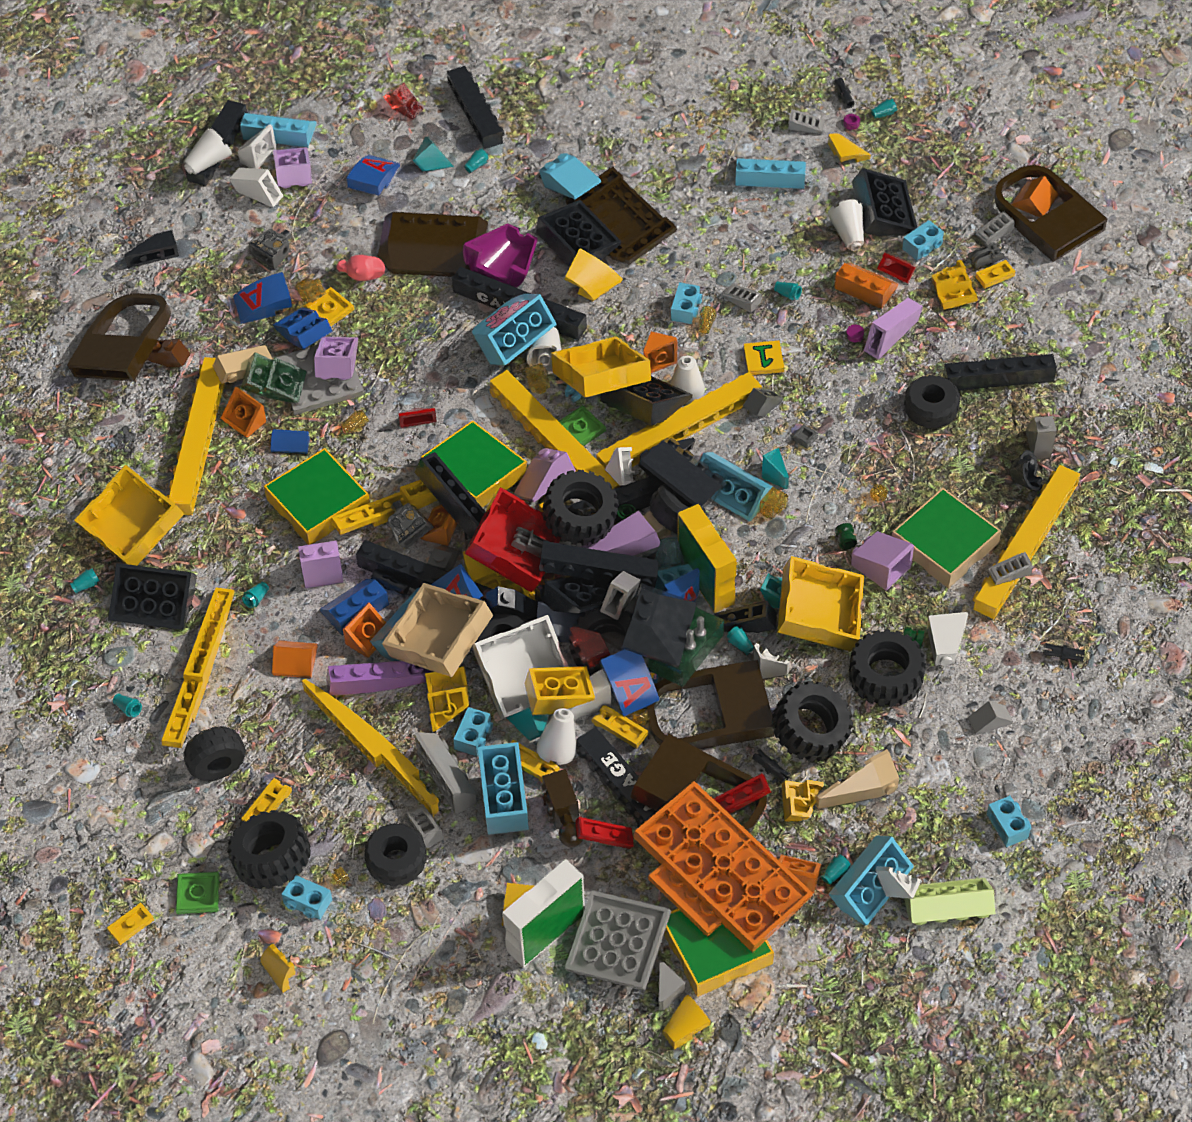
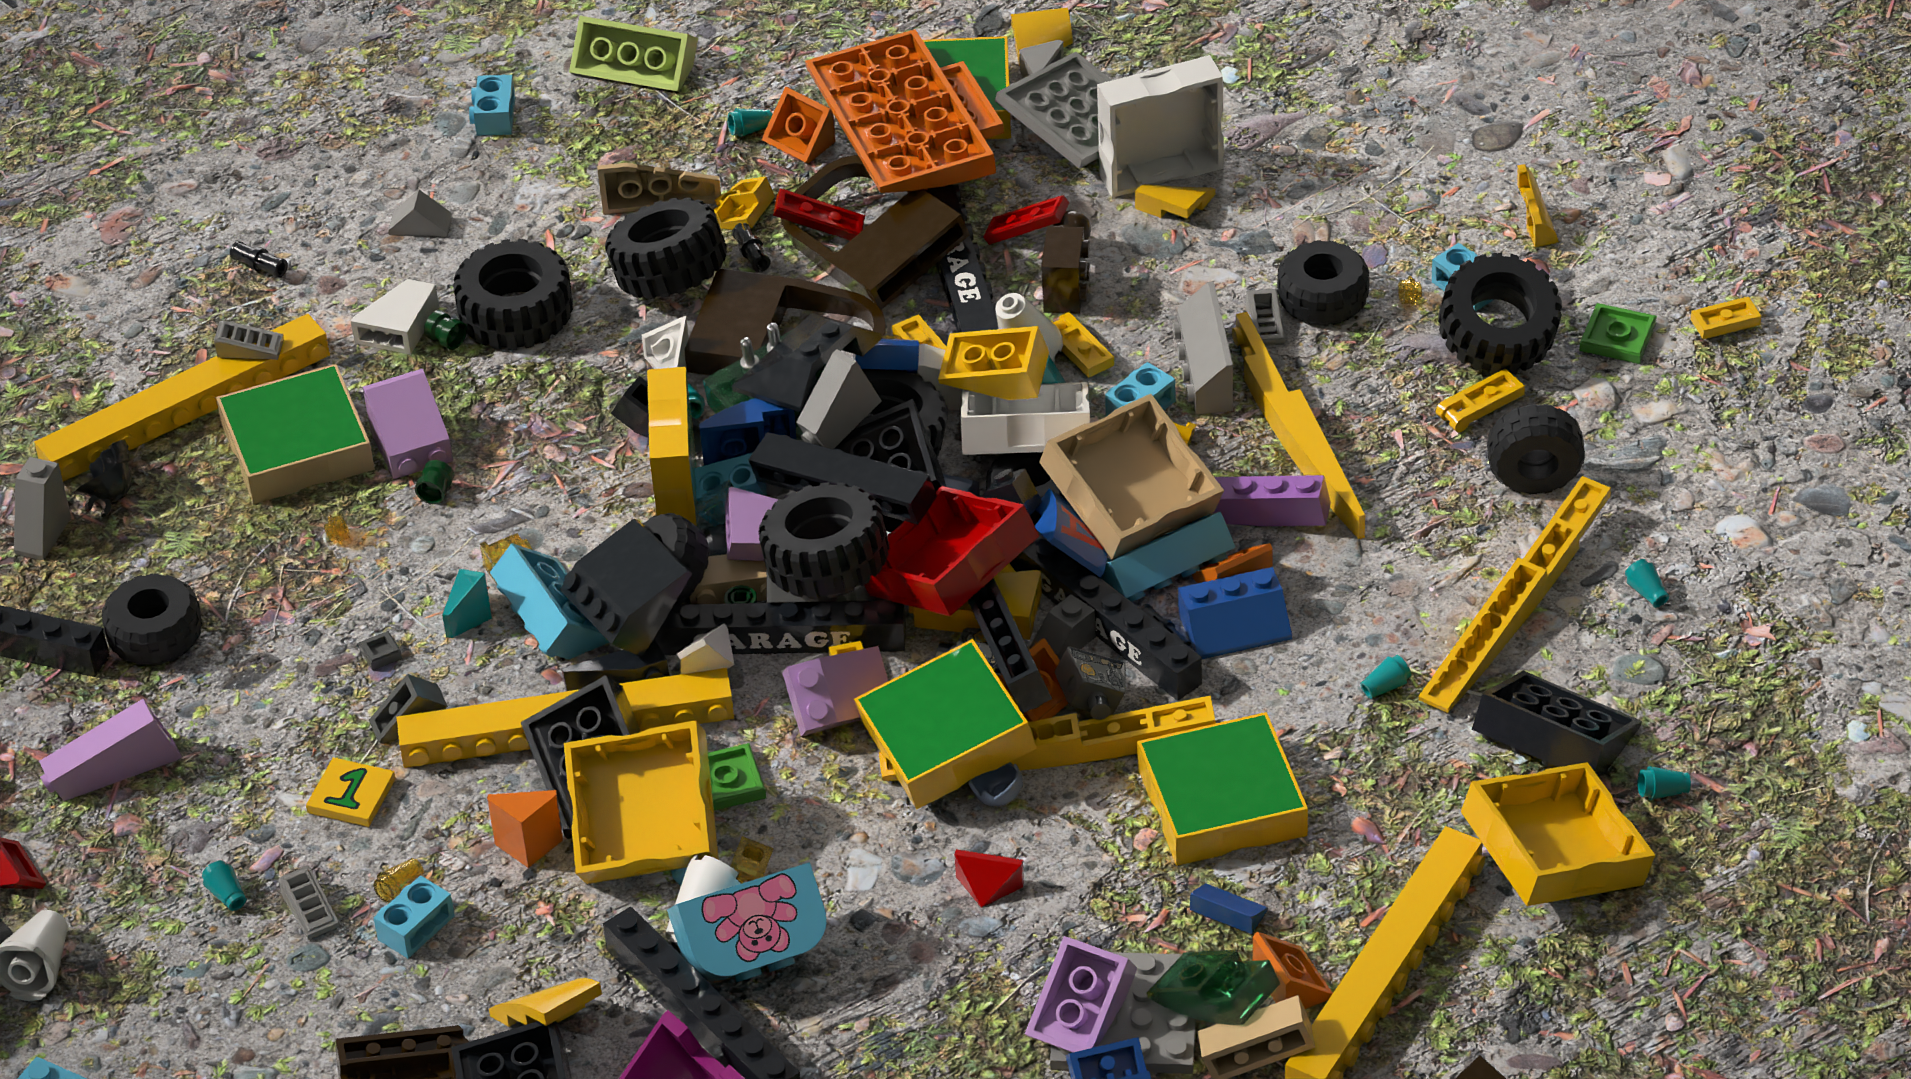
camera: 155 degrees left, 10 degrees down
(294, 659) = (1357, 578): orange slope -> none
(321, 564) = (1262, 668): lavender slope -> none
(355, 421) = (1098, 900): clear yellow cone -> none
(503, 788) = (1140, 280): medium azure brick -> none
(528, 542) = (924, 548): dark grey arm -> none
(543, 424) = (780, 761): yellow brick -> none
(591, 645) = (920, 380): clear red slope -> none
(688, 378) = (507, 763): white cone -> none
(772, 590) = (585, 434): teal slope -> none
(820, 604) = (545, 385): yellow tile -> none
(855, 333) = (173, 782): magenta tile -> none
(860, 889) = (714, 97): medium azure slope -> none
(864, 284) = (87, 851): orange slope -> none
(897, 883) = (680, 69): white slope -> none

